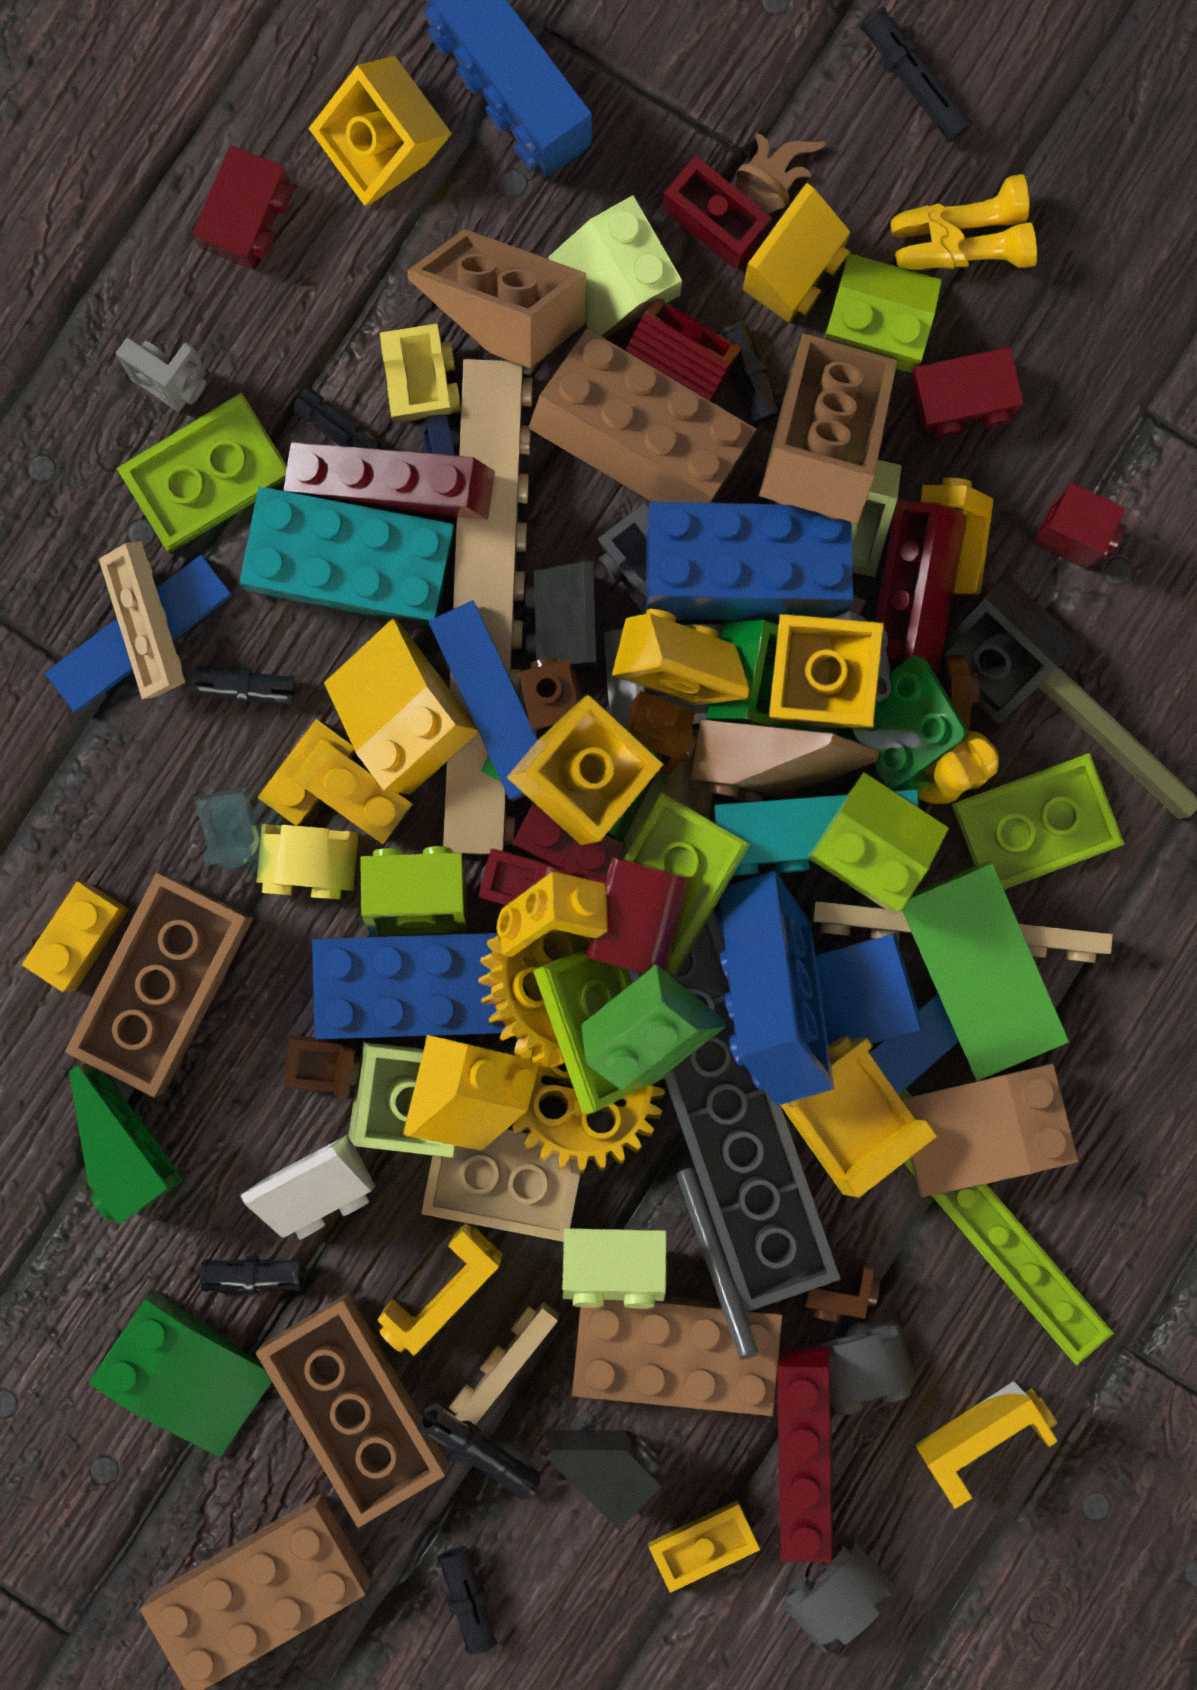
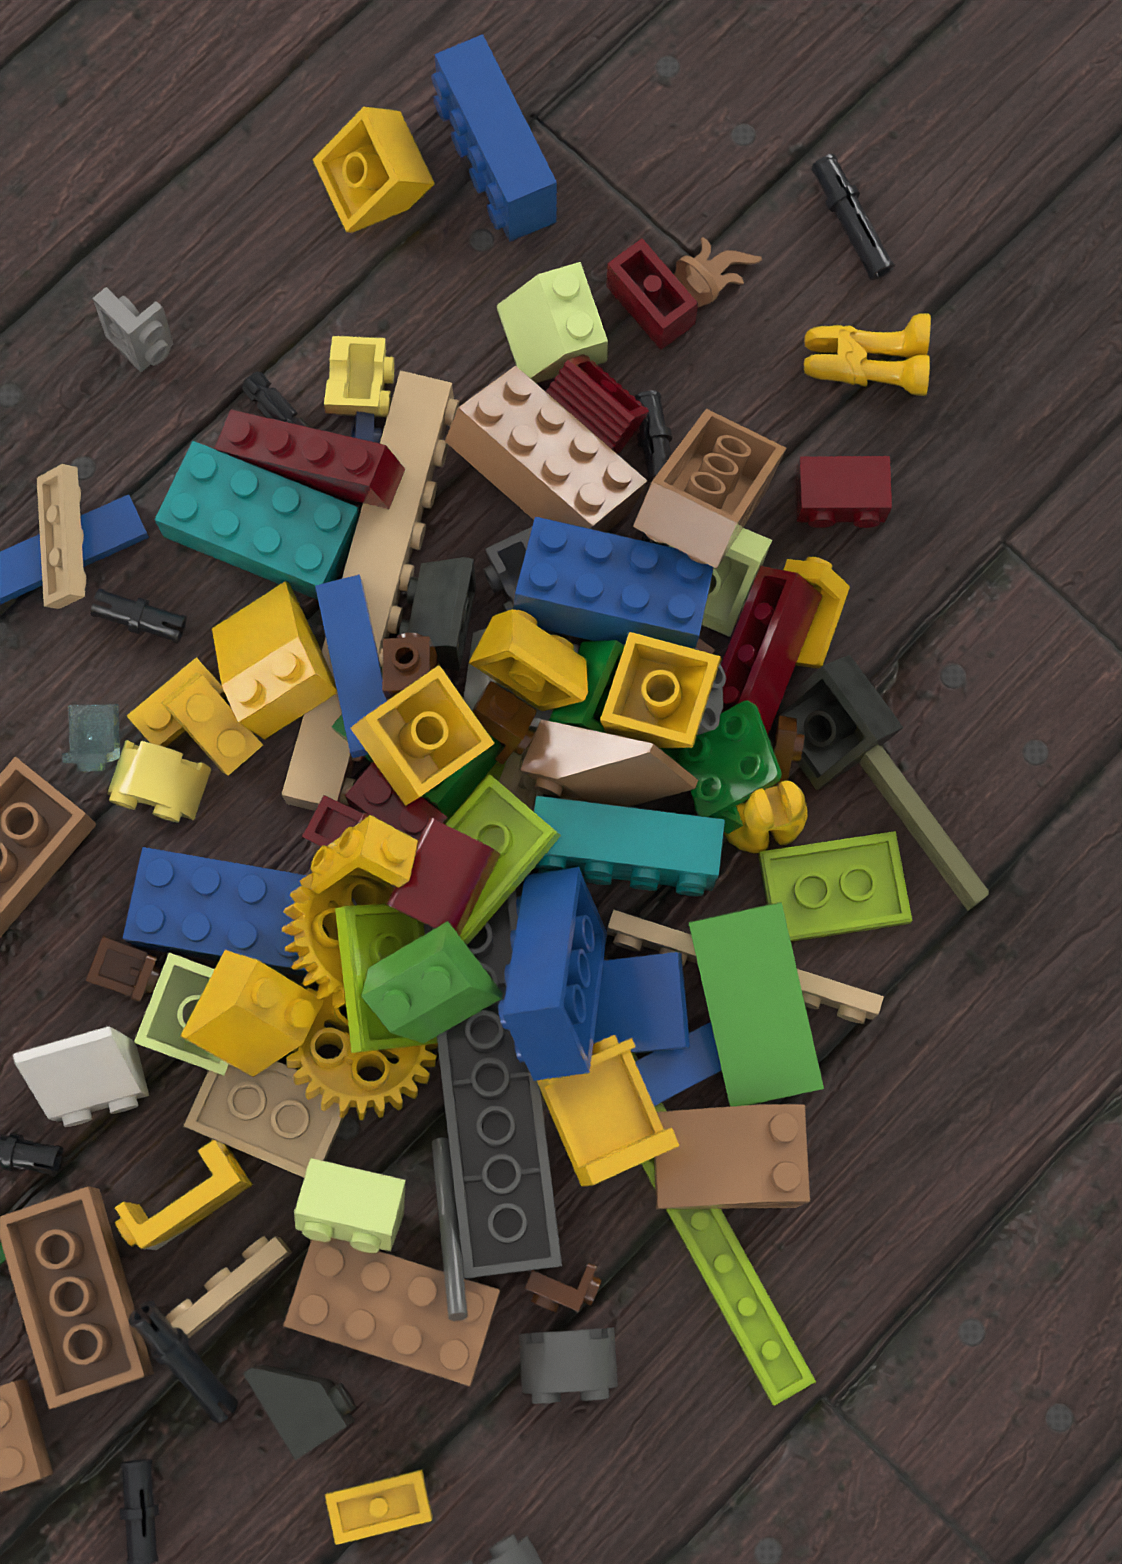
camera: 10 degrees right, 10 degrees down
(204, 472) = (148, 426): lime tile -> none
(243, 208) = (238, 210): dark red brick -> none
(414, 893) = (246, 823): lime slope -> none
(503, 295) = (449, 326): medium nougat slope -> none
(797, 256) = (714, 342): yellow slope -> none
(805, 1454) = (493, 1433): dark red brick -> none
(879, 844) = (677, 858): lime slope -> none
(884, 310) = (783, 406): lime slope -> none
(979, 1432) = (666, 1444): yellow panel -> none
(1081, 526) = (923, 624): dark red brick -> none

